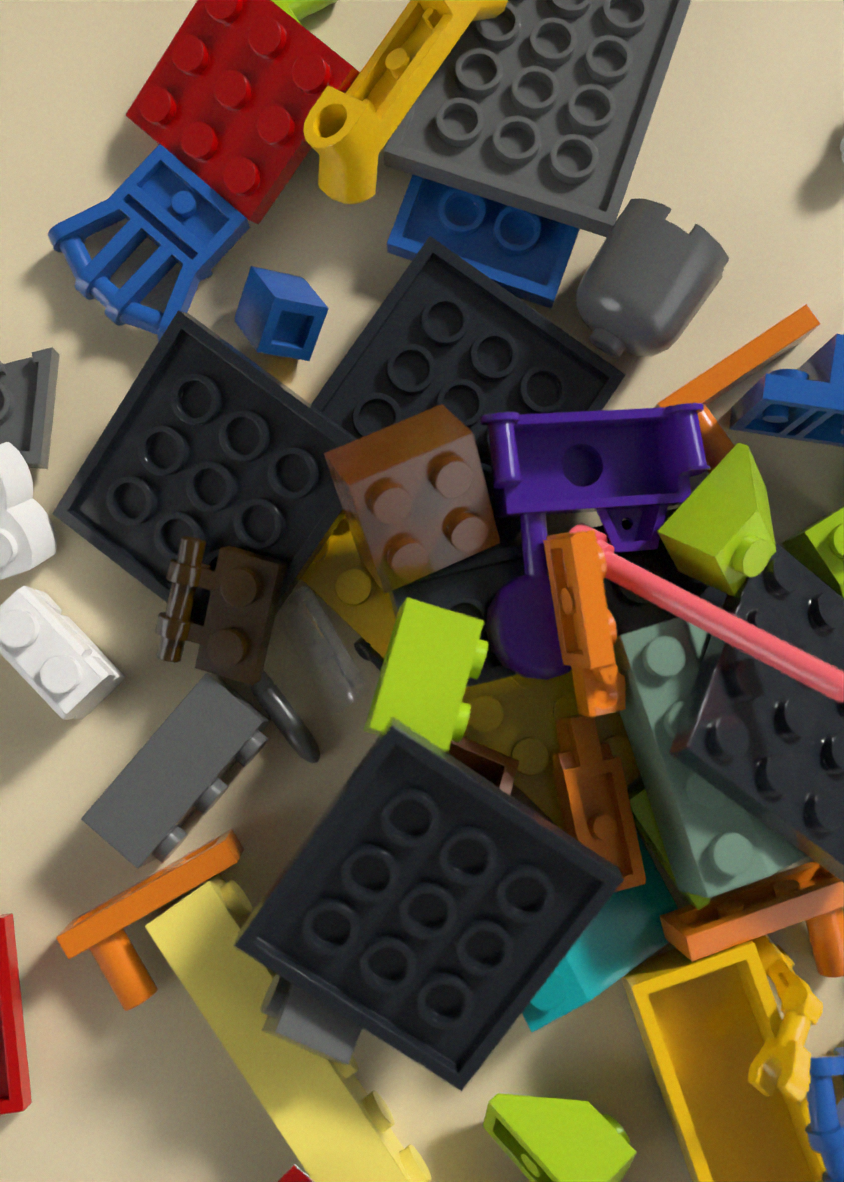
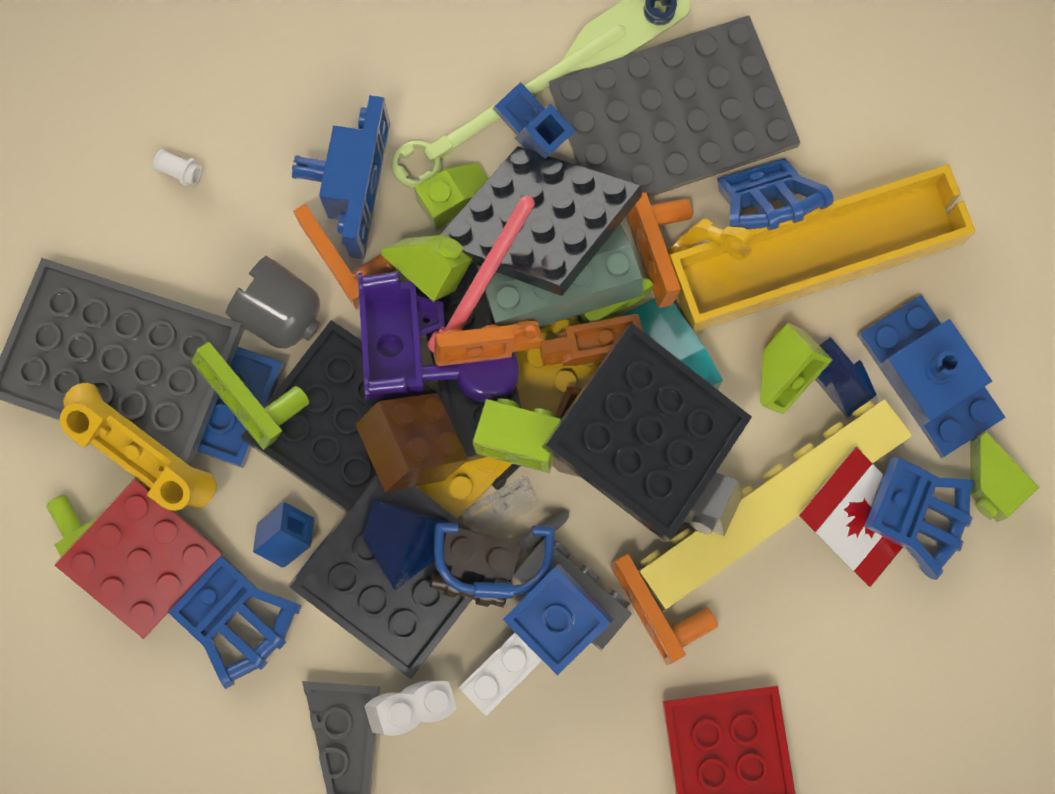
camera: 90 degrees left, 5 degrees down
(124, 747) = (558, 619): none -> blue plate
(175, 638) = (488, 589): none -> blue piece
(250, 489) = (400, 540): none -> clear blue slope
(448, 261) = (259, 421): none -> lime piece

